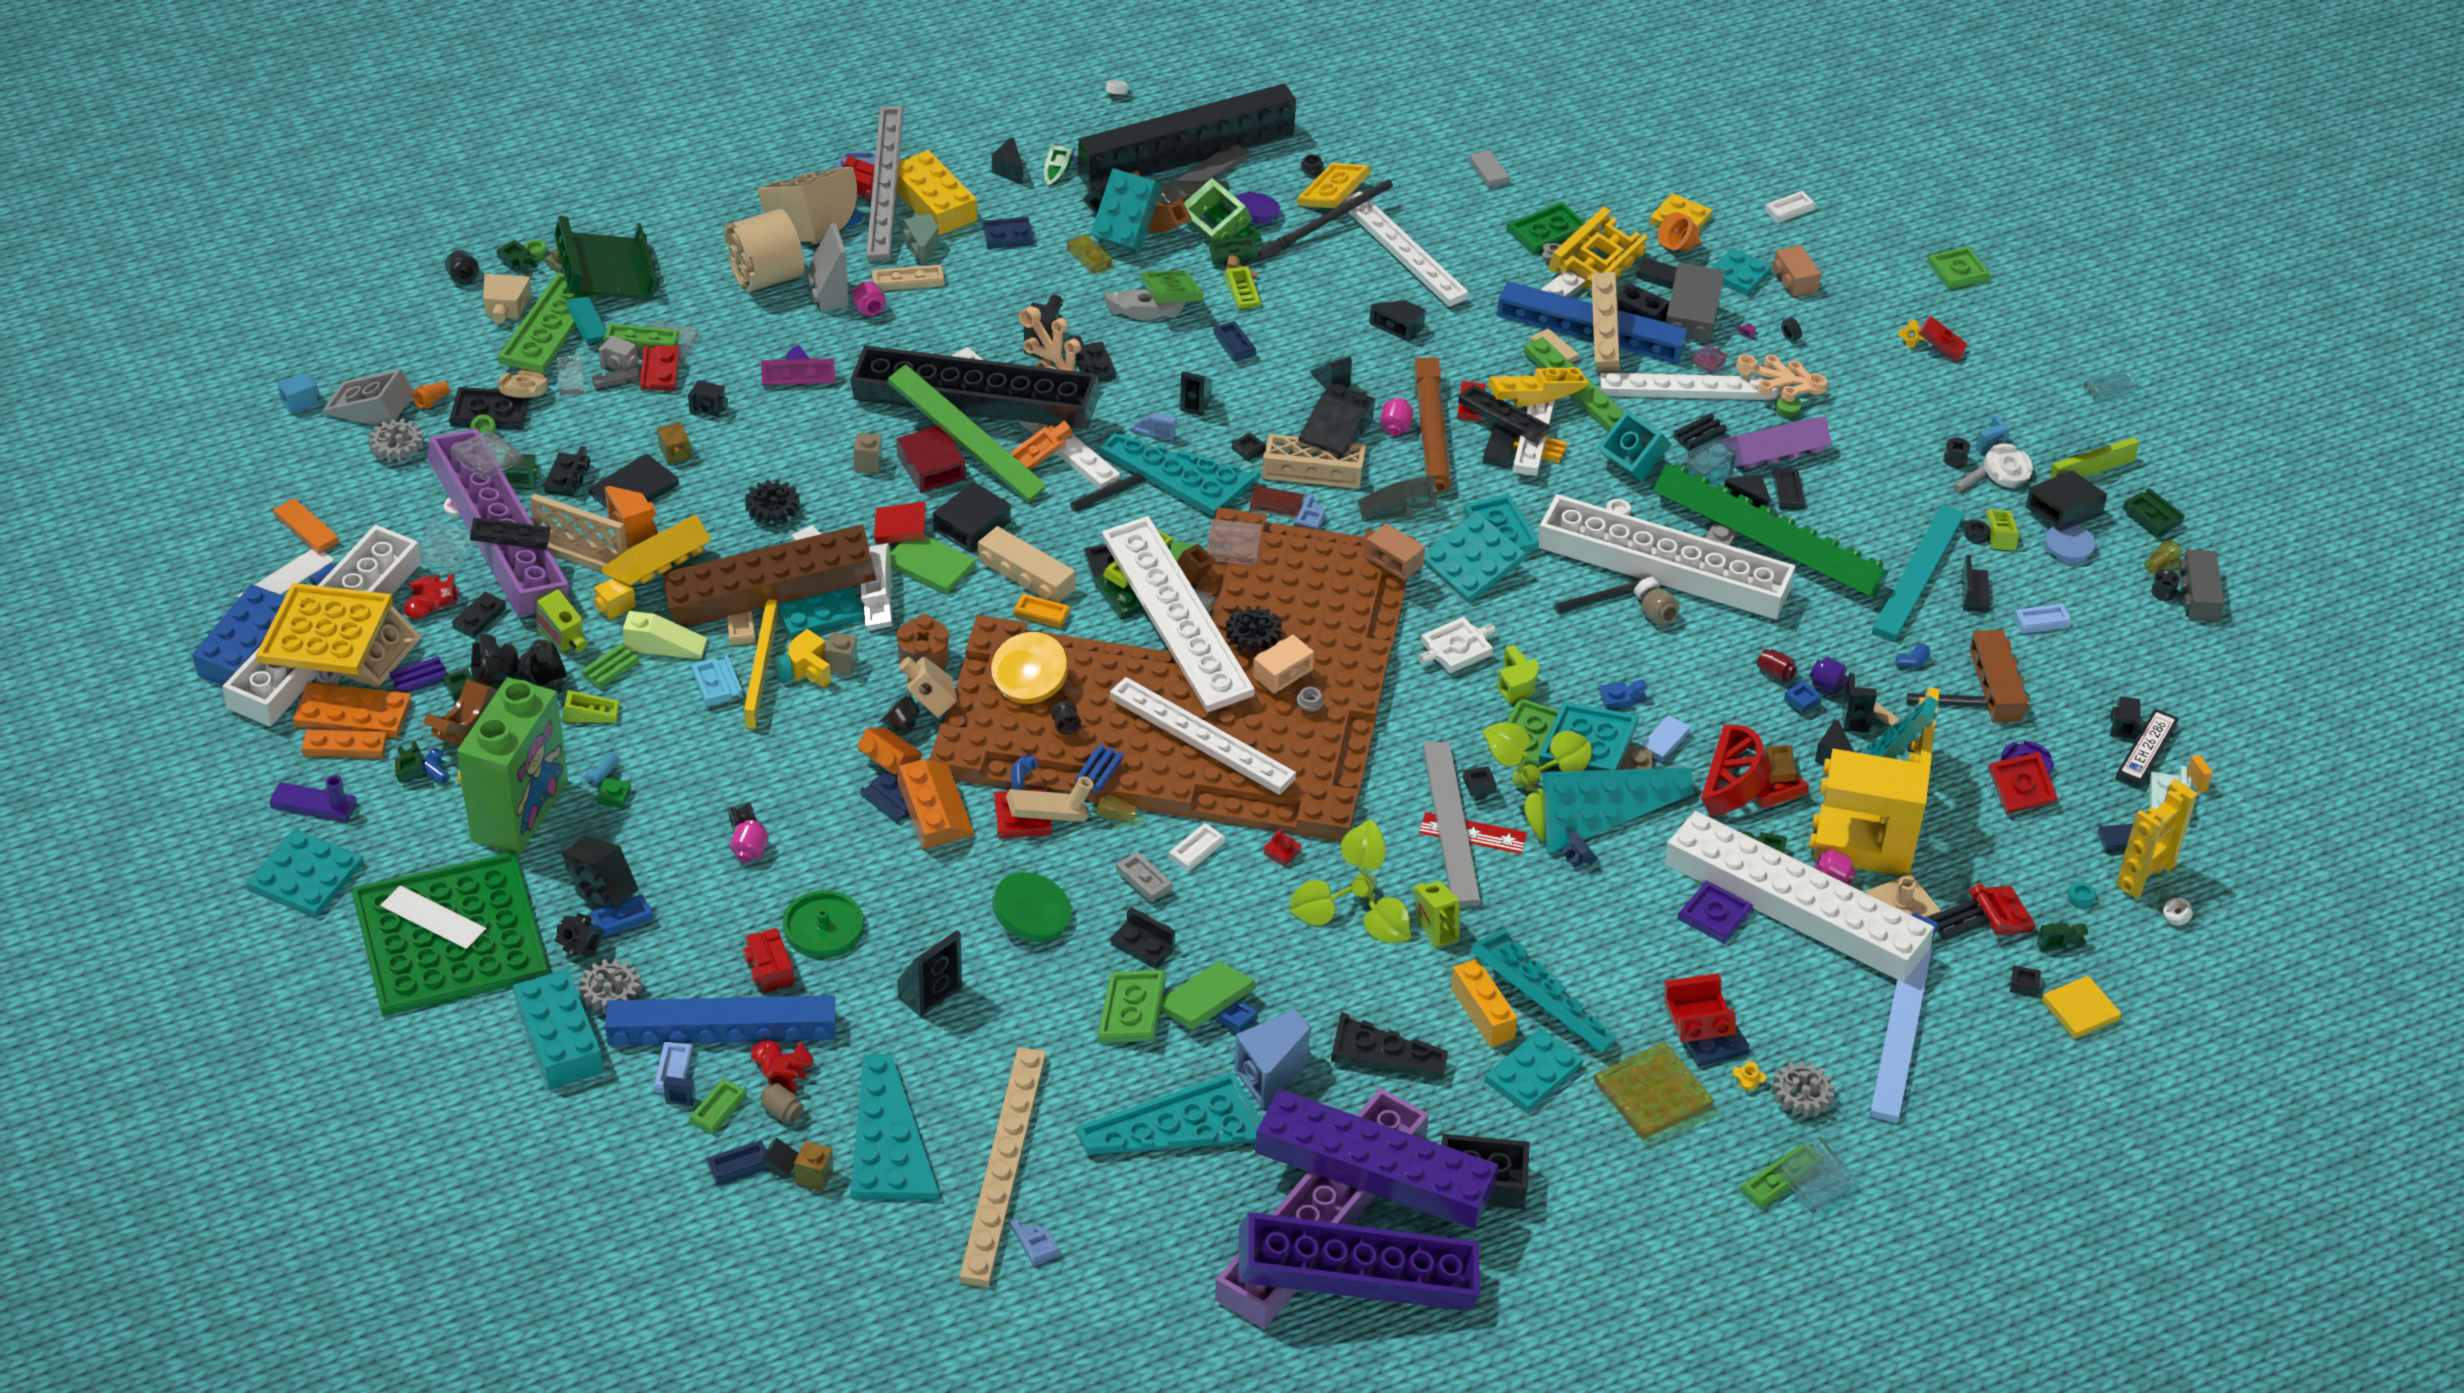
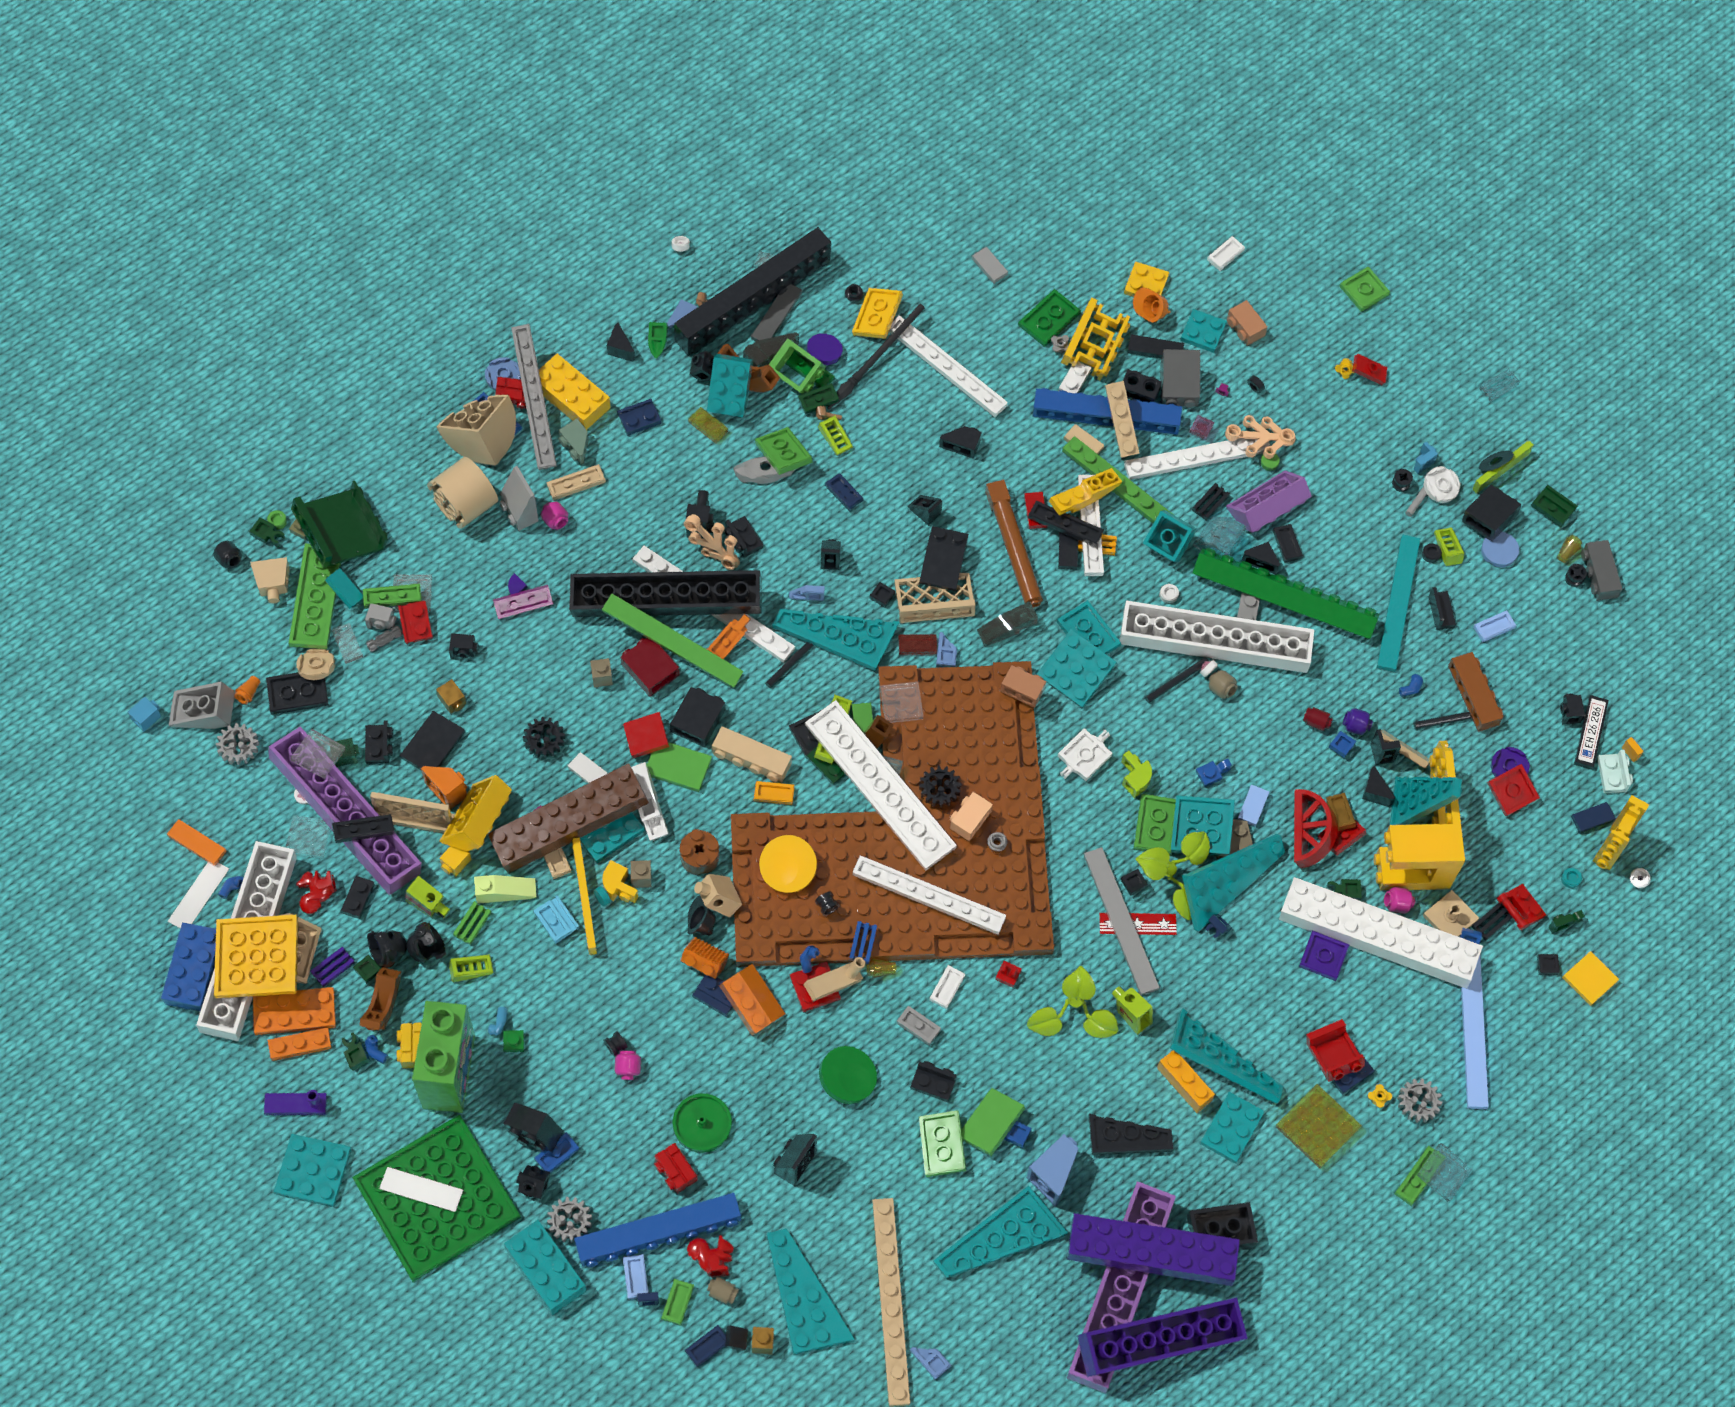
camera: 15 degrees left, 20 degrees up
(483, 423) = (299, 714): bright green tile -> none
(1396, 416) = (986, 542): dark pink head -> none

